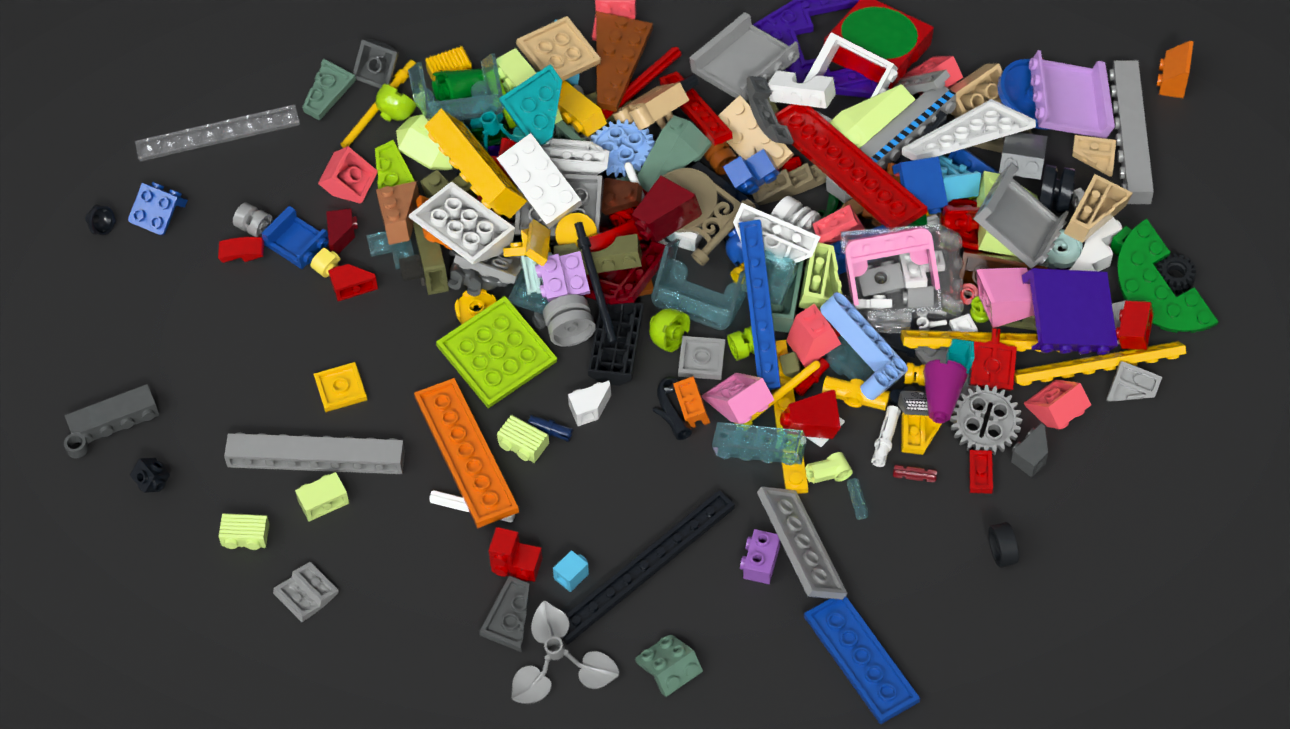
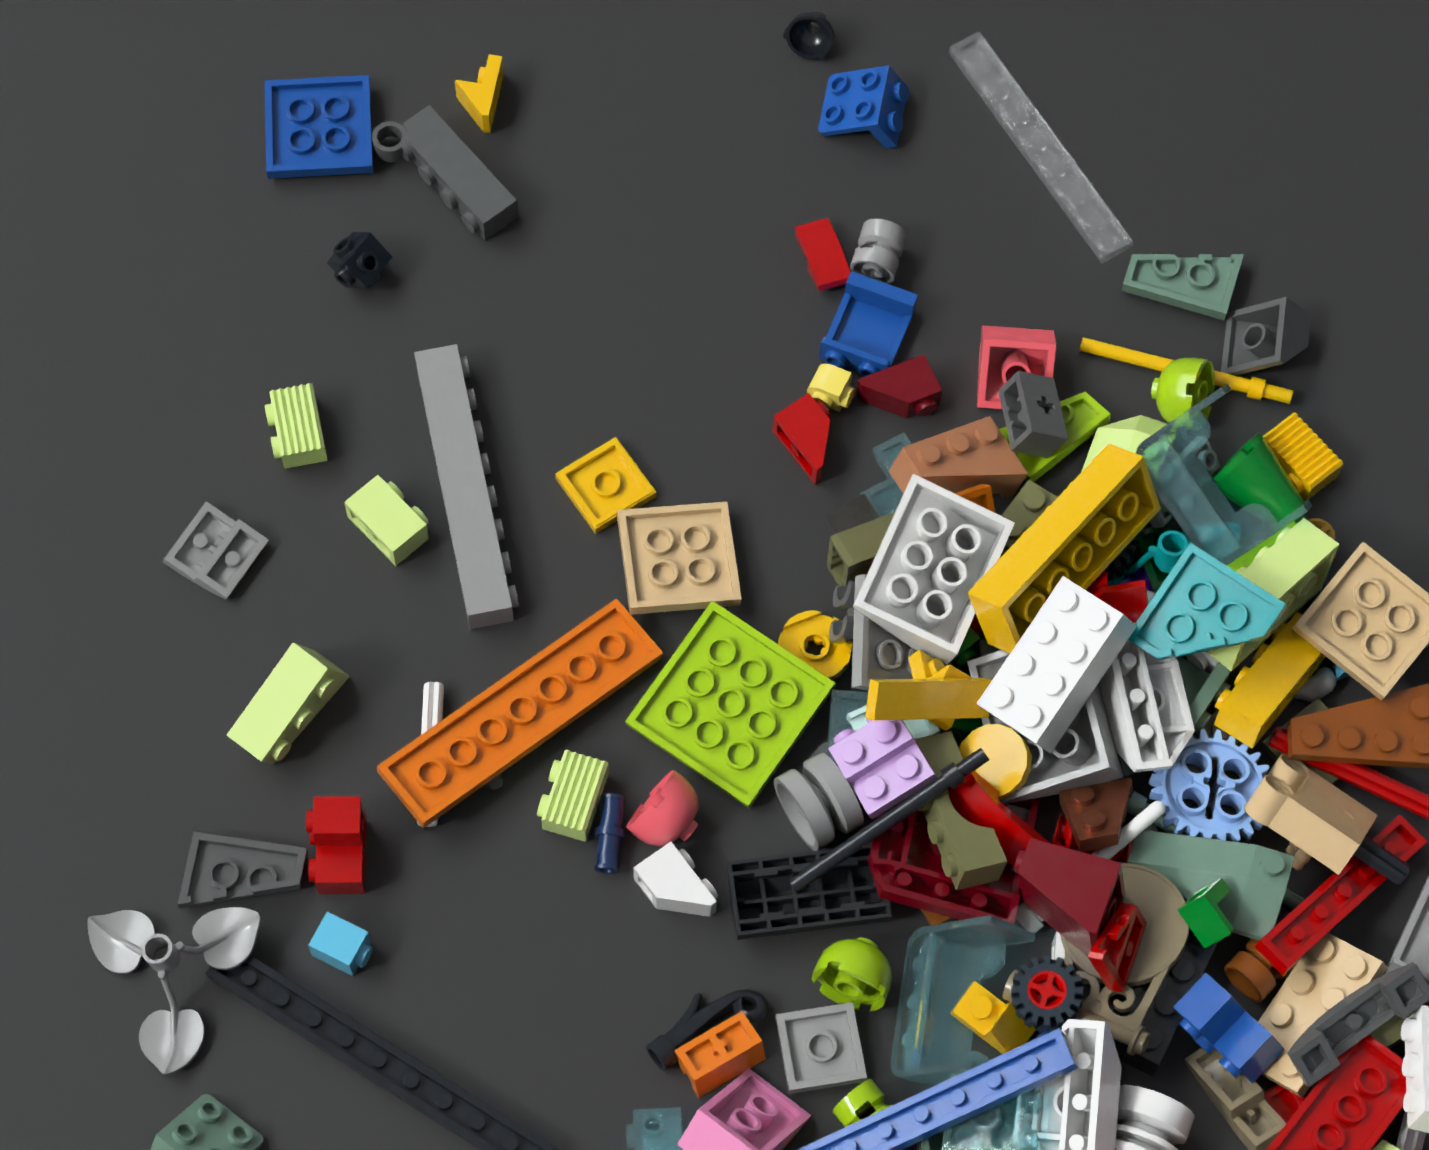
camera: 70 degrees right, 10 degrees up
(48, 482) = (318, 126): none -> blue plate
(66, 391) = (482, 97): none -> yellow slope
(383, 169) = (1033, 414): none -> dark grey brick
(400, 357) = (678, 557): none -> tan plate
(419, 566) = (286, 703): none -> yellowish green wedge
(547, 395) = (667, 812): none -> coral cylinder
(692, 158) = (1205, 916): none -> green panel
(705, 200) = (1117, 946): none -> red wing
(709, 229) = (1049, 979): none -> black wheel
(710, 278) = (991, 1019): none -> yellow slope

